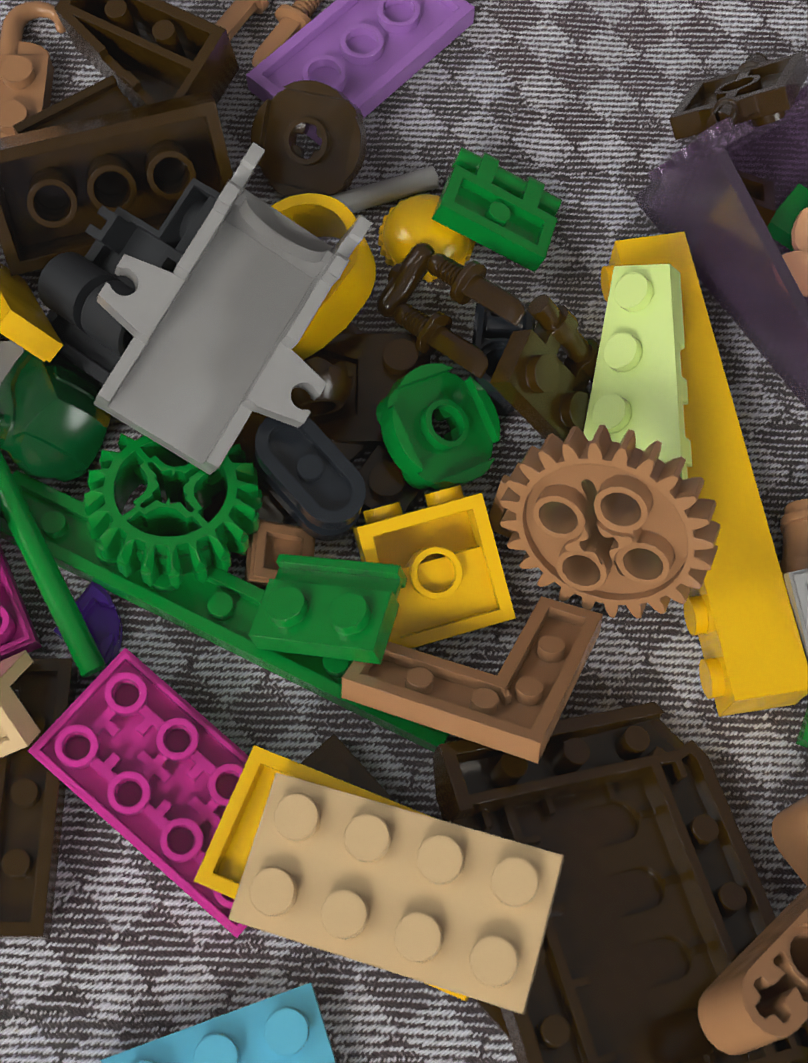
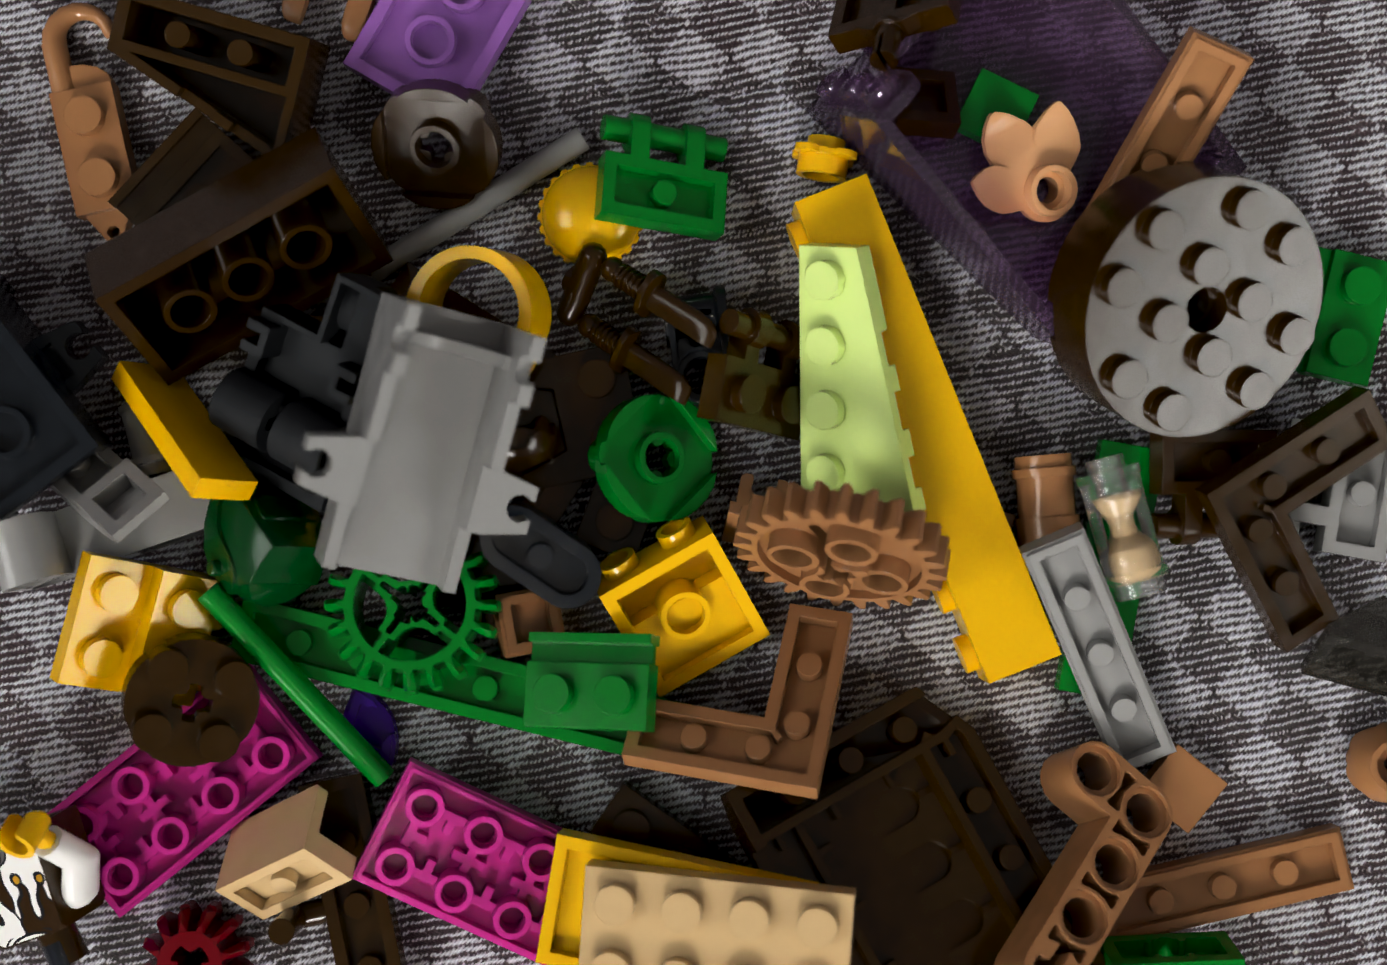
camera: 10 degrees left, 20 degrees up
(644, 219) = (823, 158): none -> yellow plate

